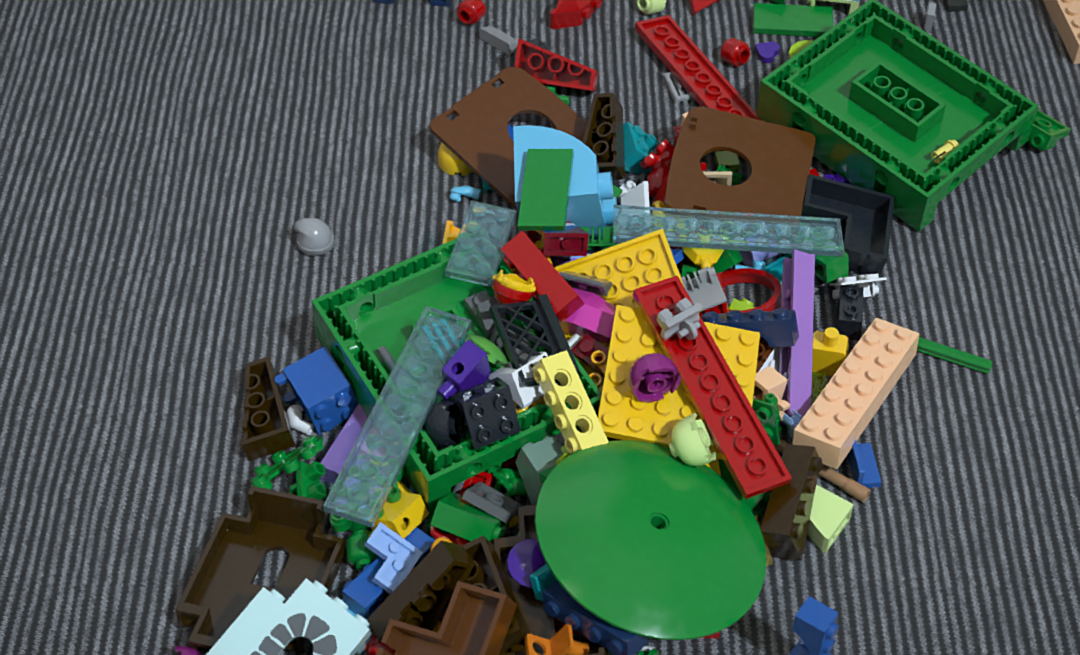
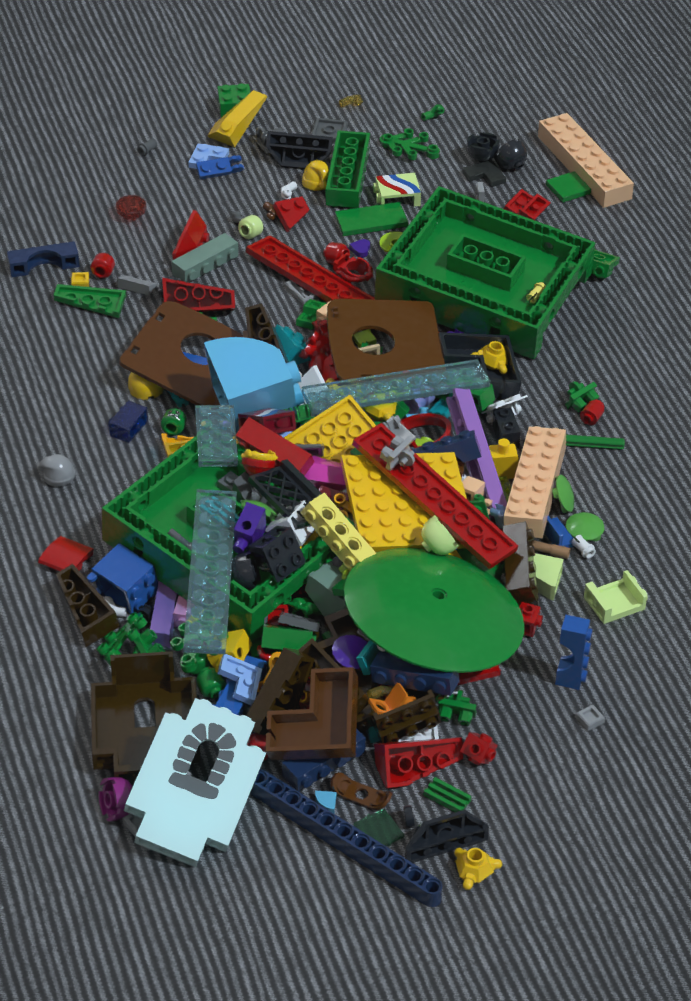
camera: 20 degrees left, 5 degrees down
(277, 340) = (64, 552): none -> red slope
(329, 436) = (147, 612): none -> black plate
(417, 197) = (128, 421): none -> clear blue brick
(442, 21) = (80, 279): none -> yellow tile
(448, 47) = (90, 298): none -> green wing
(461, 205) = (173, 421): none -> green head
(467, 191) = (159, 410): medium azure arm -> none
(546, 189) = (250, 384): green tile -> none
(547, 625) = (379, 691): none -> clear yellow arm
(586, 26) = (205, 258): none -> sand green brick
(653, 376) = (393, 497): magenta cylinder -> none
(674, 117) = (309, 314): none -> green slope
(739, 66) = (360, 265): none -> red piece
(780, 573) = (531, 618): none -> red brick
(867, 218) = (494, 356): none -> yellow rock
(888, 416) = (564, 492): none -> bright green dish
(890, 496) = (587, 550): none -> white pin
(901, 465) = (586, 525): none -> bright green dish
(904, 574) = (616, 598): none -> yellowish green panel
(956, 288) = (579, 393): none -> green hips
(965, 317) = (592, 412): none -> red brick
(980, 42) = (527, 205): none -> red slope
(1039, 30) = (568, 186): none -> green tile

